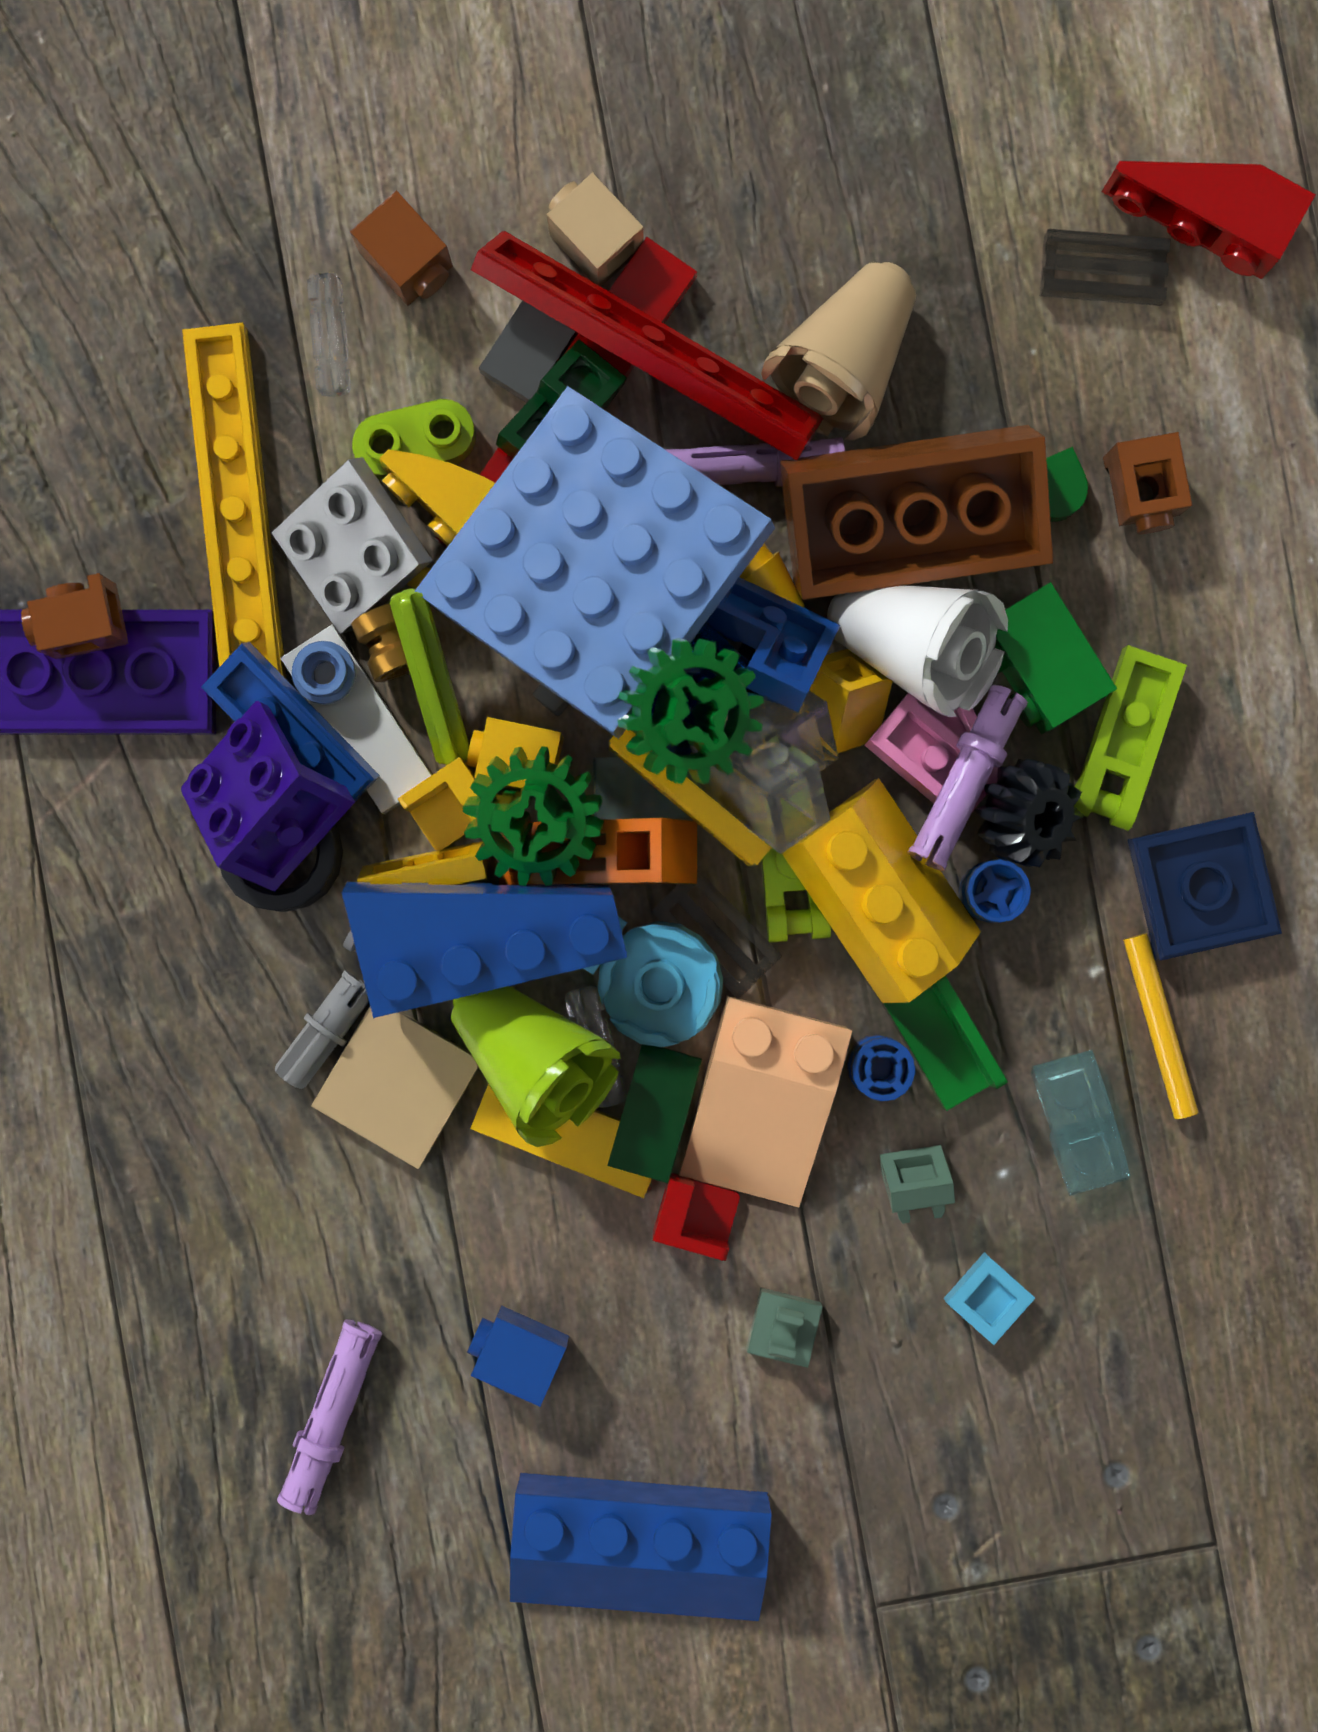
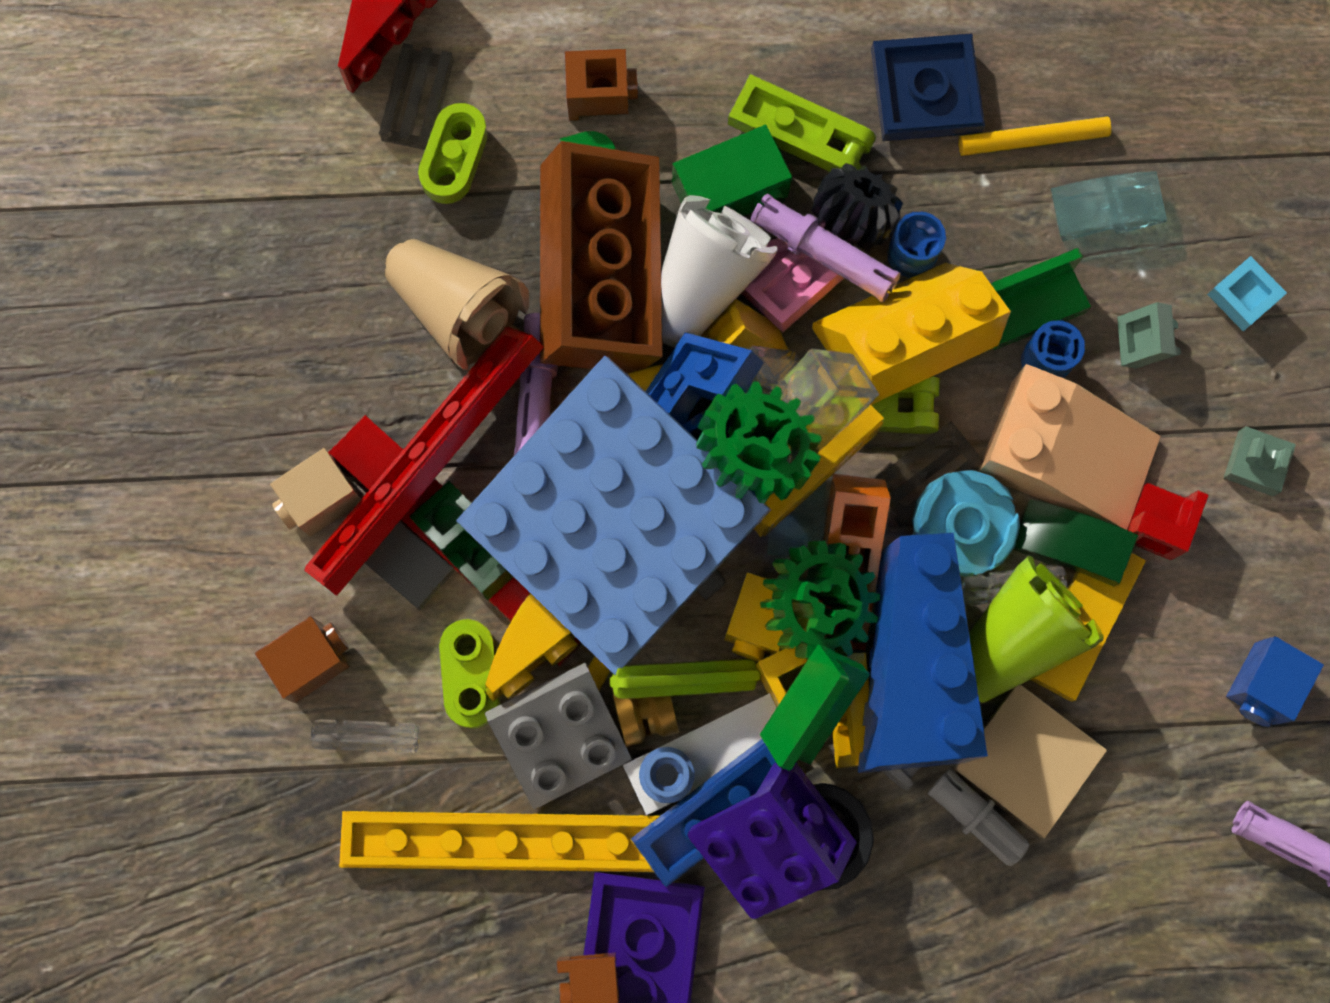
camera: 85 degrees left, 10 degrees down
(411, 821) = (813, 707): none -> green panel
(1033, 316) = (451, 156): none -> lime plate

